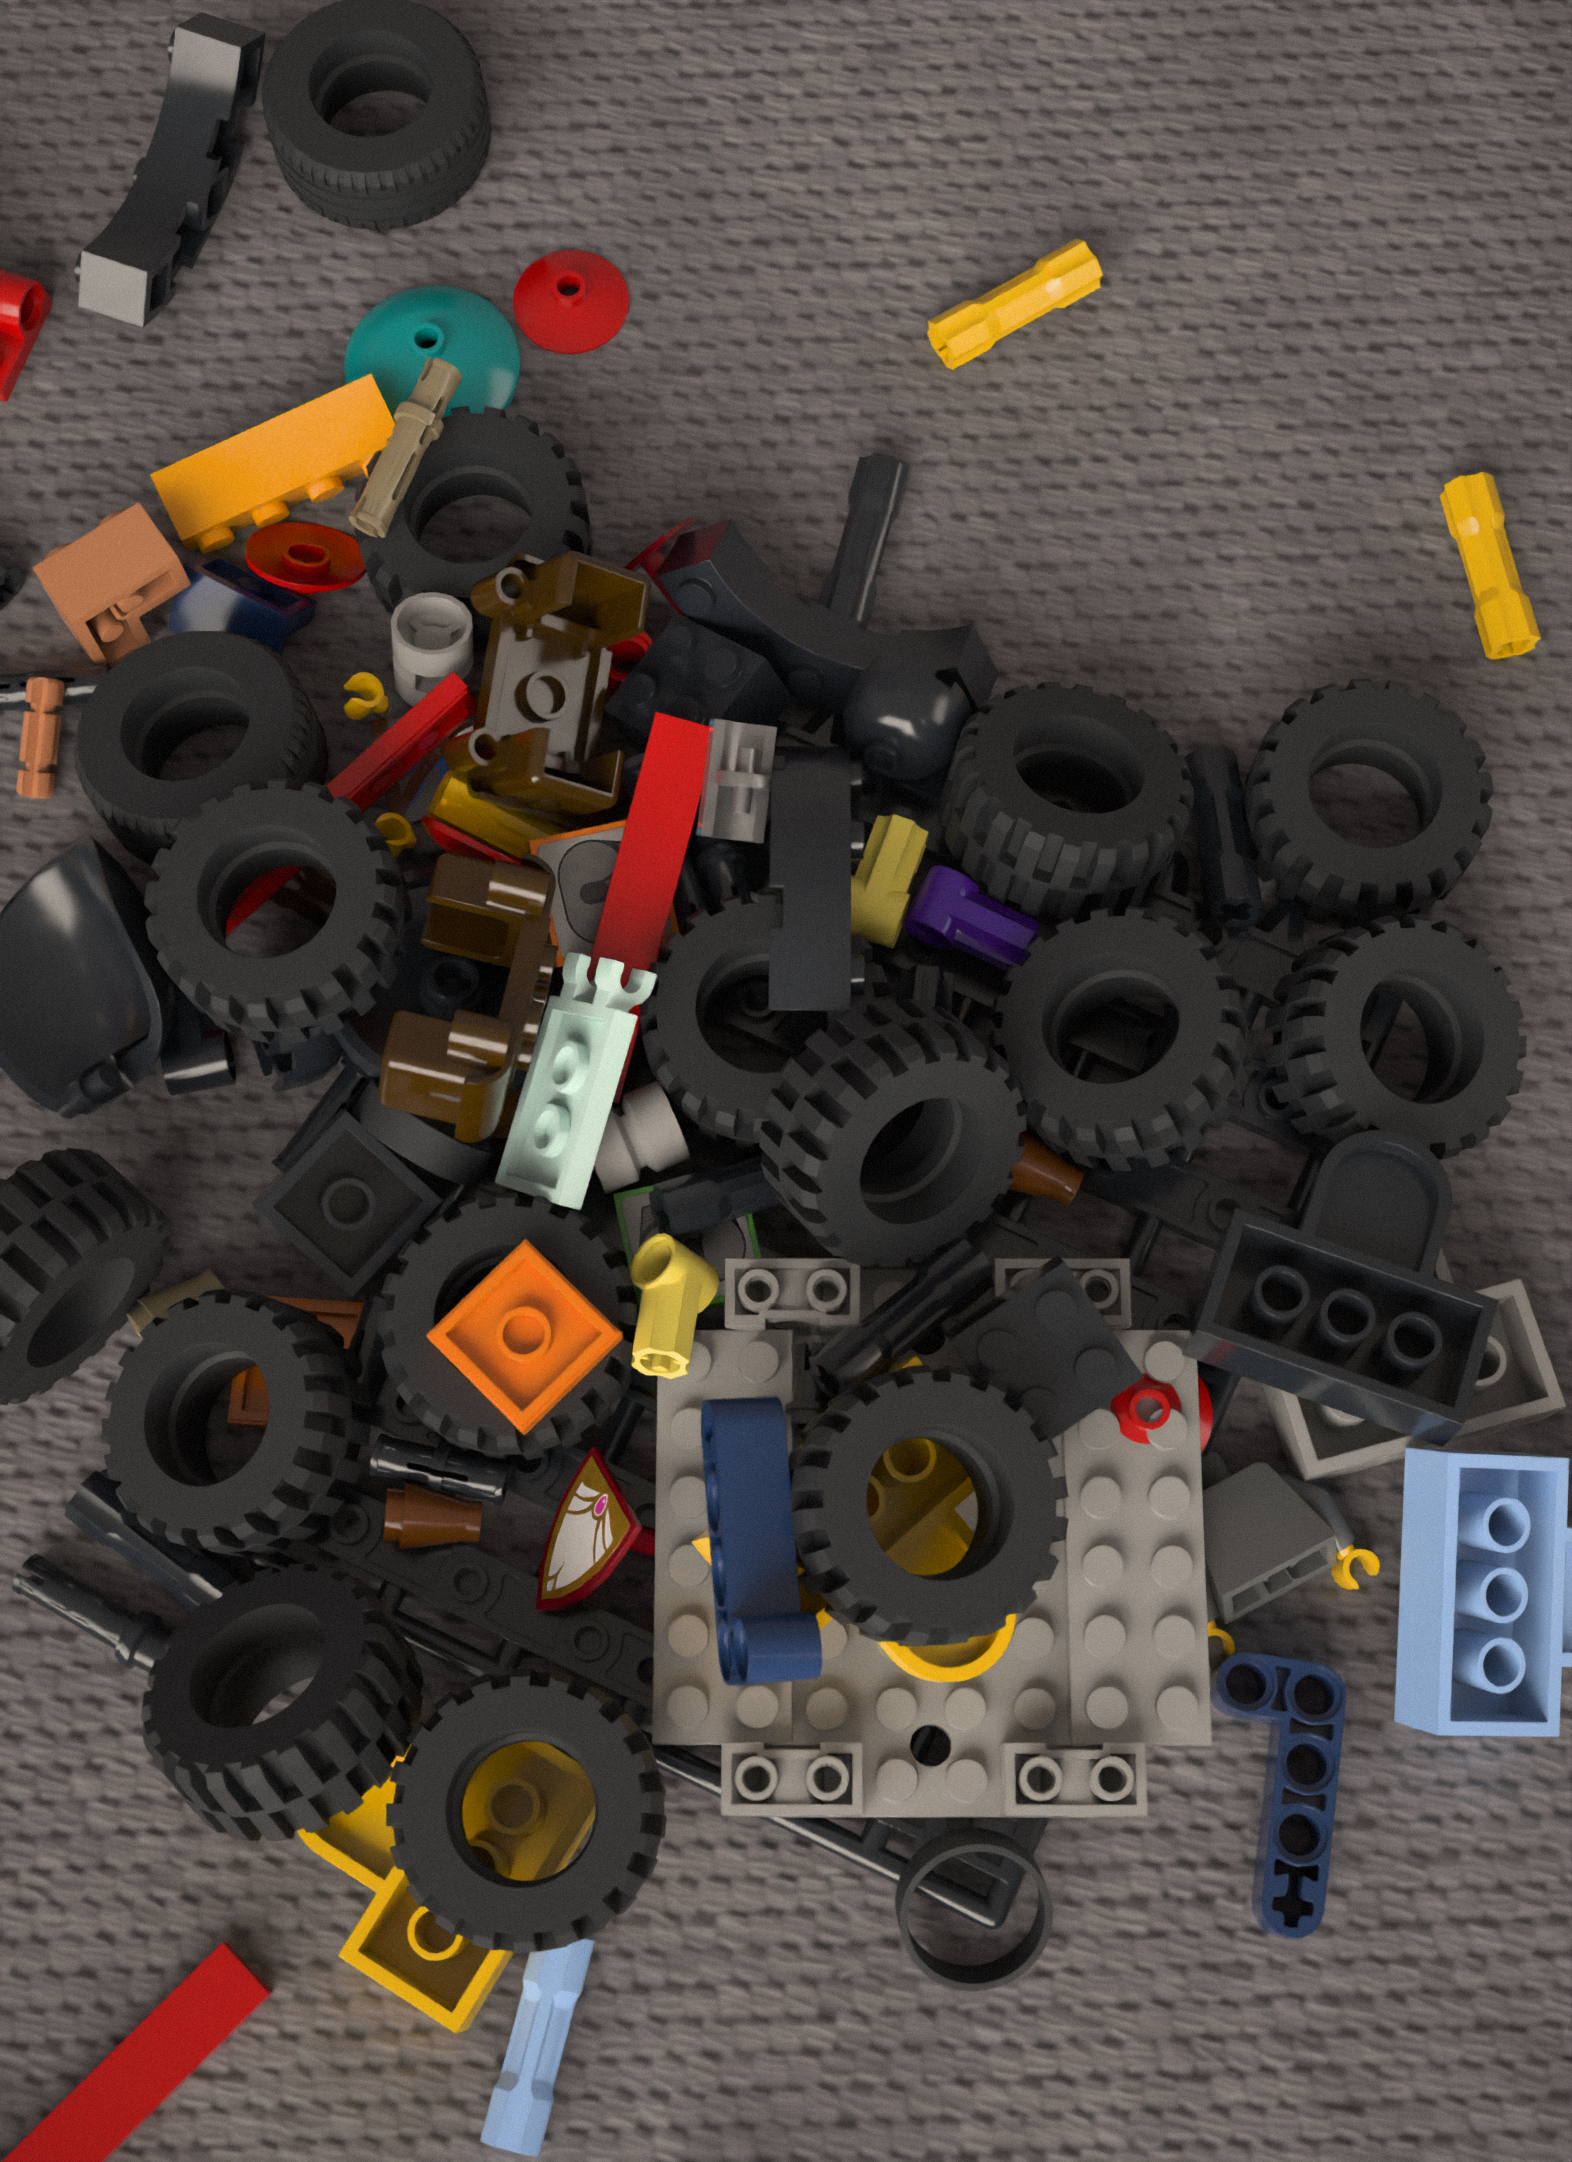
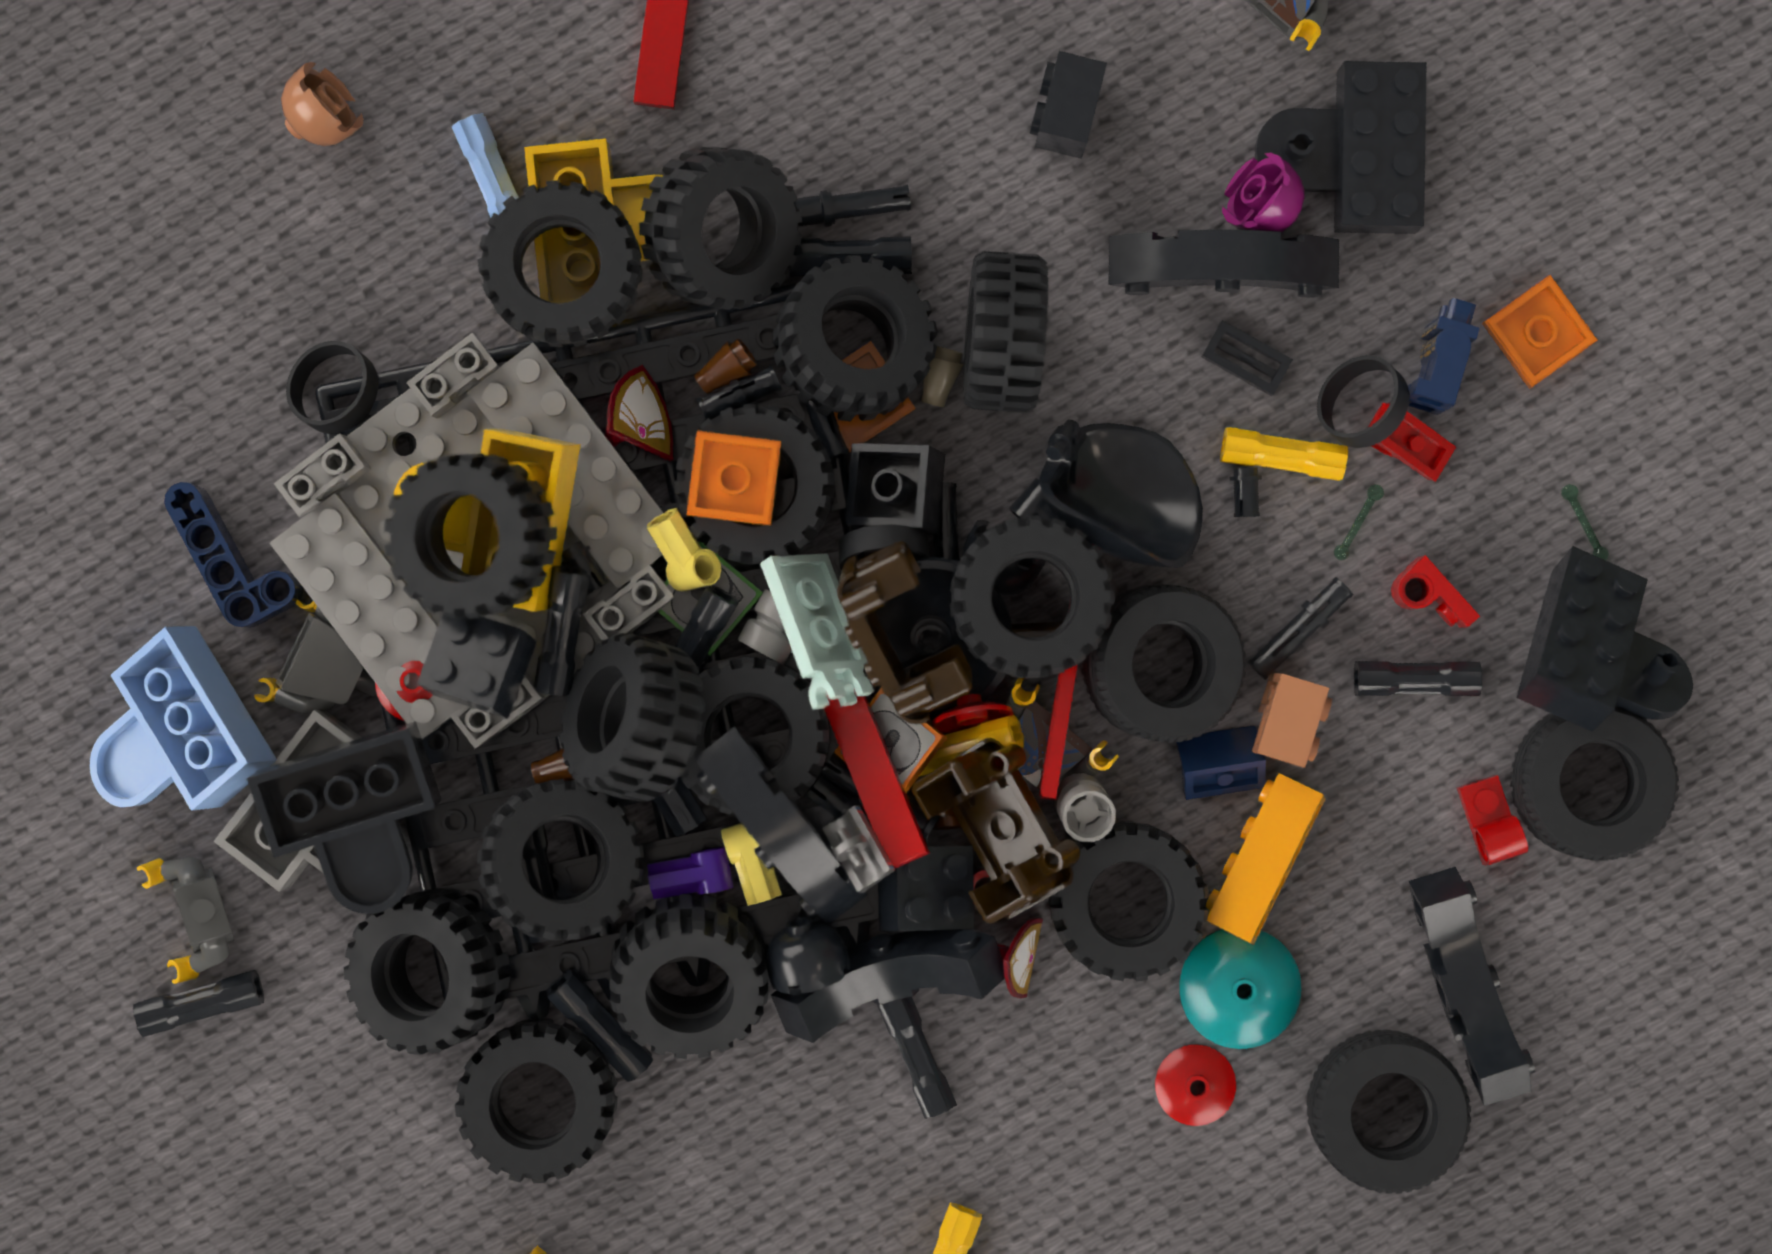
camera: 145 degrees right, 15 degrees up
(40, 737) = (1264, 610): nougat axle -> none
(305, 557) = (1208, 817): red dish -> none
(415, 428) = (1186, 906): dark tan pin -> none
(753, 1545) = (502, 417): dark blue beam -> none

